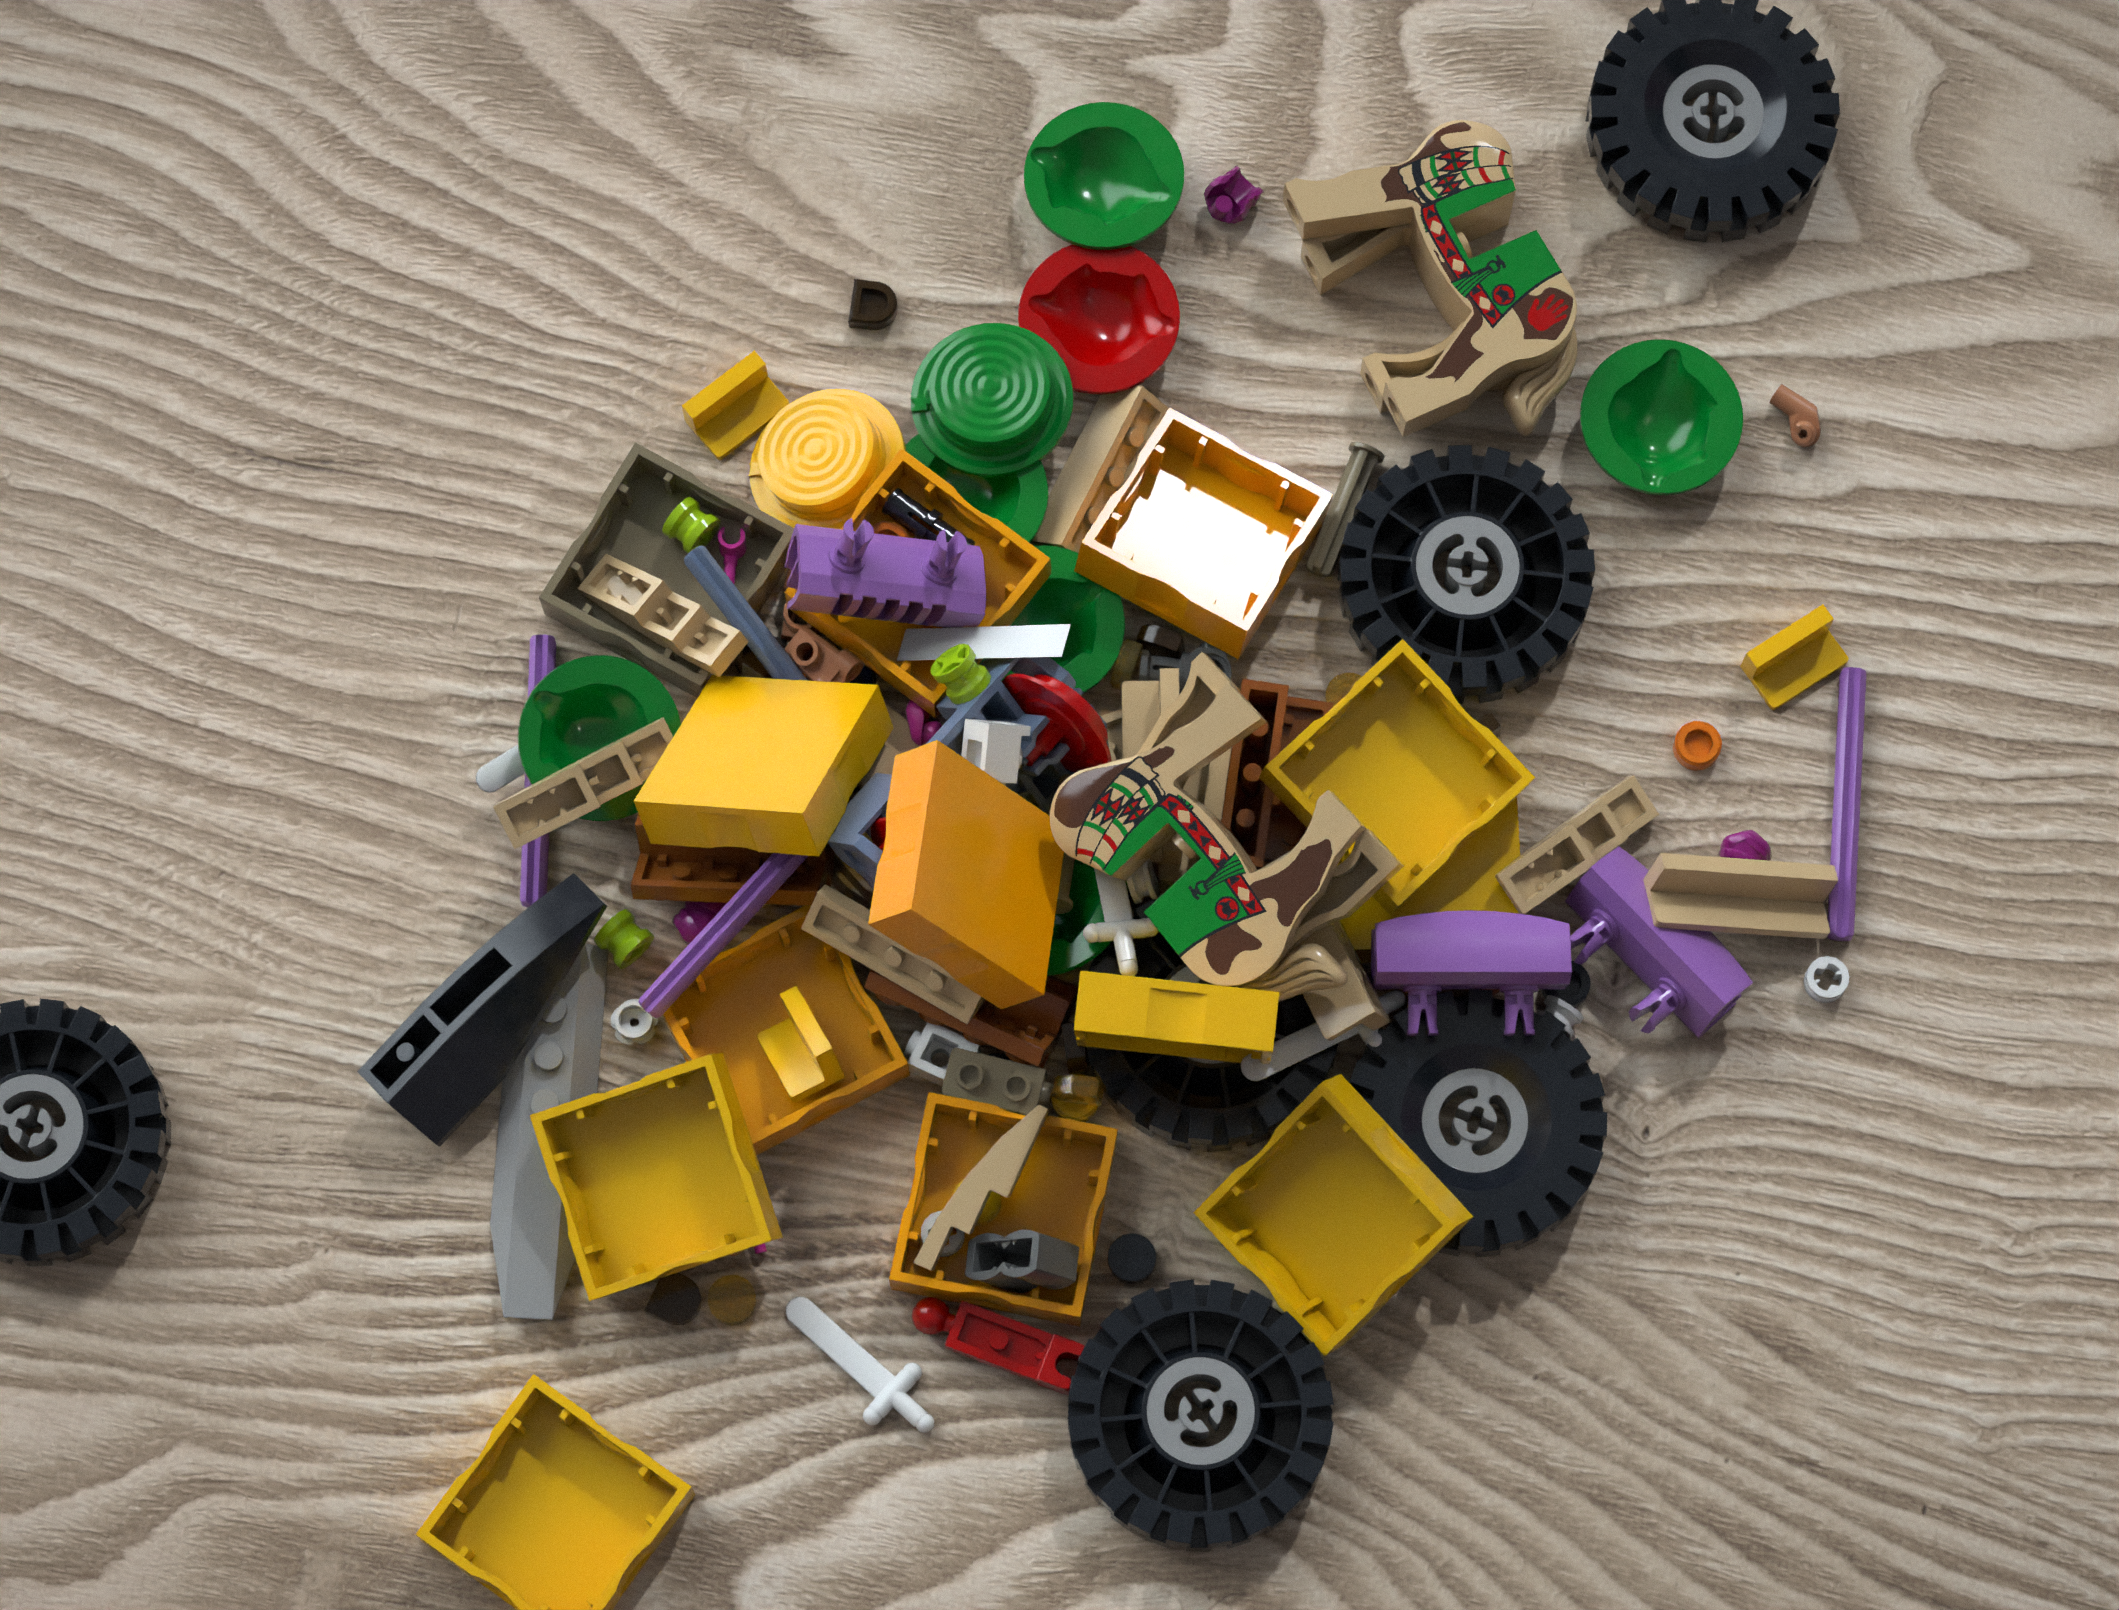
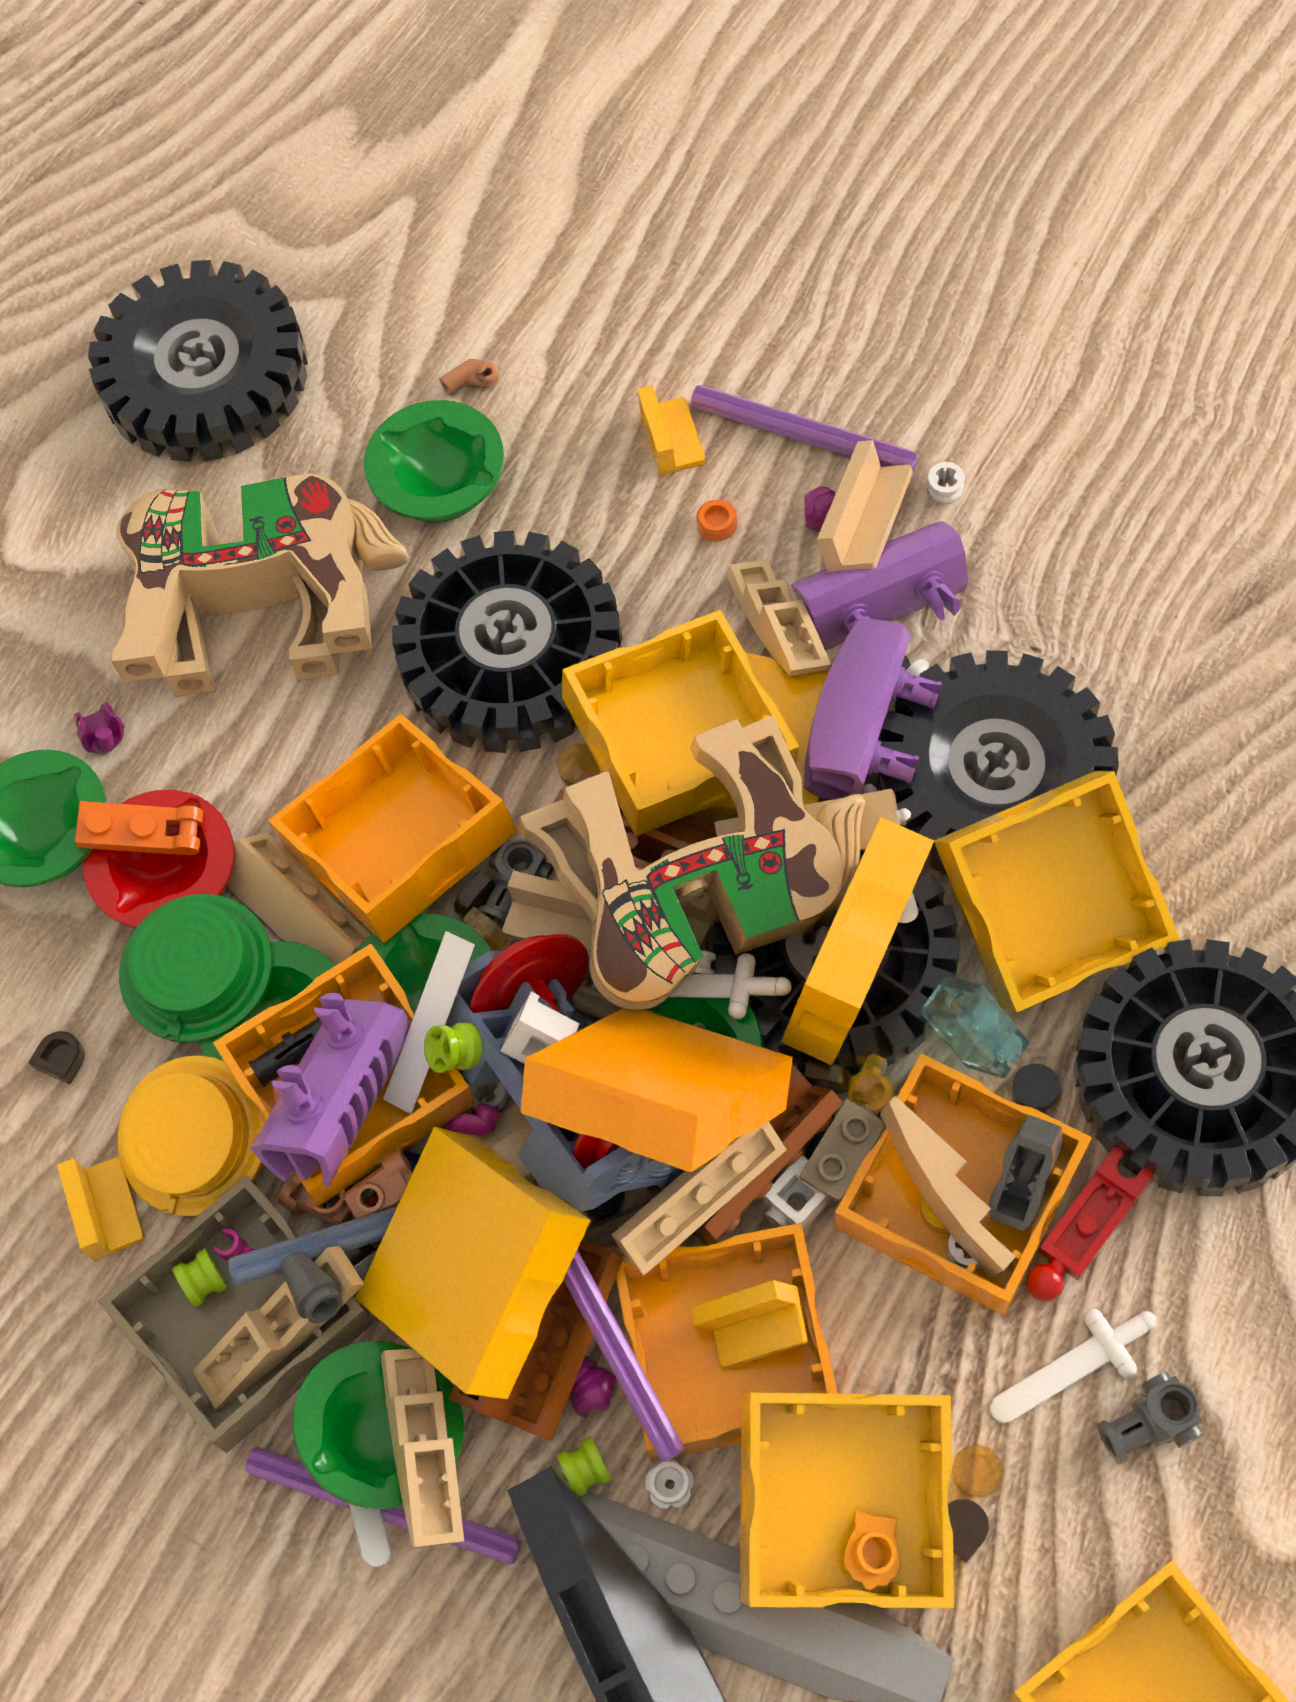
camera: 65 degrees left, 10 degrees down
(620, 1216) = (872, 1550): none -> light orange animal
(695, 630) = (312, 1290): none -> dark grey cone
(823, 1446) = (1150, 1420): none -> dark grey connector
(1119, 282) = (138, 828): none -> orange plate
(1163, 1175) = (981, 1032): none -> clear light blue brick
(1341, 511) = (391, 705): dark tan axle -> none

